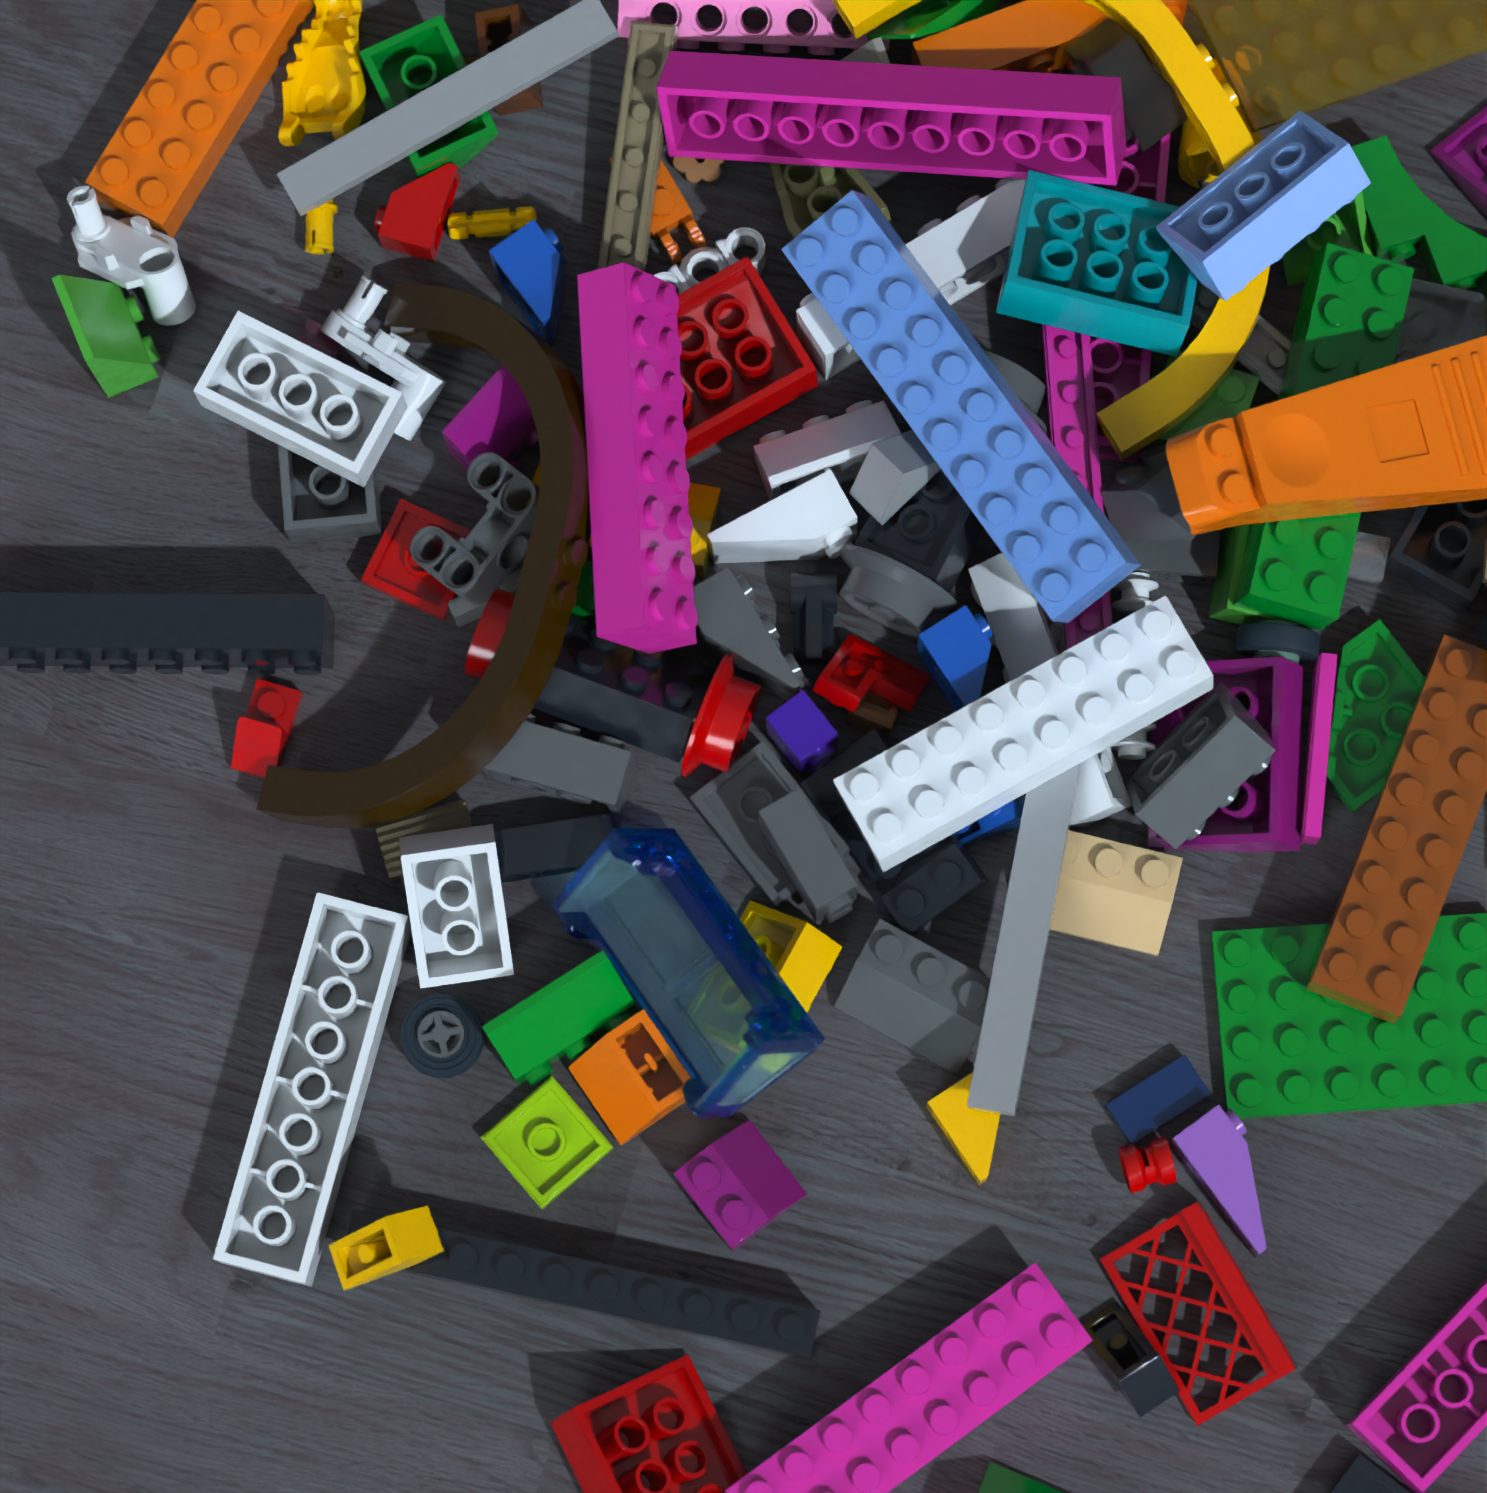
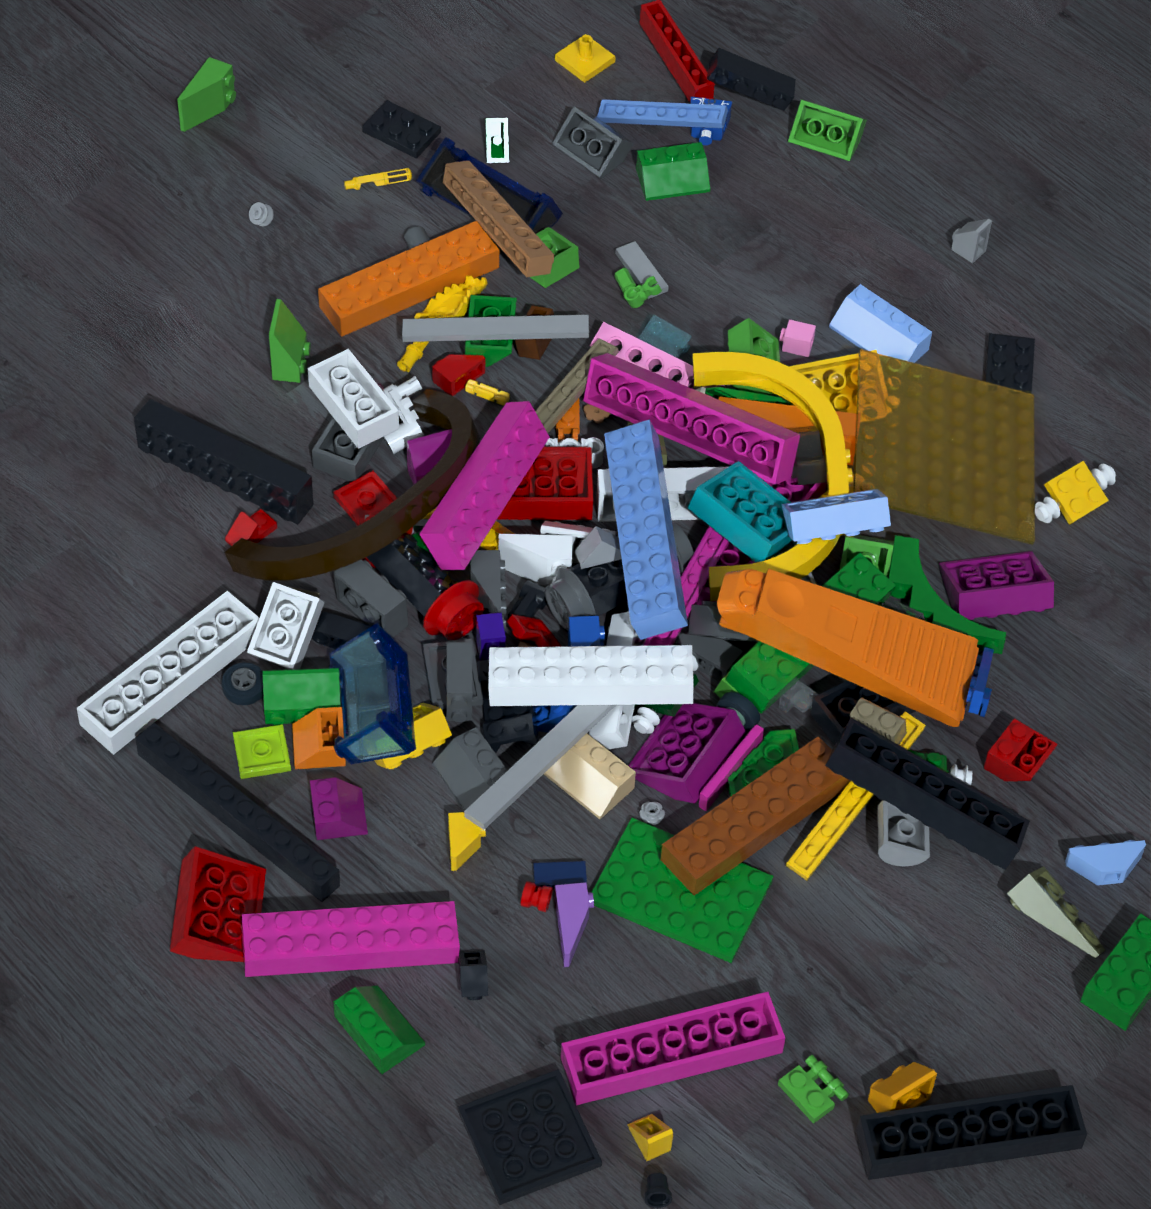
camera: 20 degrees right, 25 degrees down
(131, 257) = (321, 326): white piece -> none
(385, 1247) = (157, 735): yellow slope -> none
(494, 543) = (381, 495): dark grey beam -> none
(533, 276) = (488, 404): blue slope -> none
(1199, 767) = (666, 739): dark grey slope -> none
(1224, 899) = (652, 818): none -> light grey plate
(1234, 1291) = (543, 974): red fence -> none

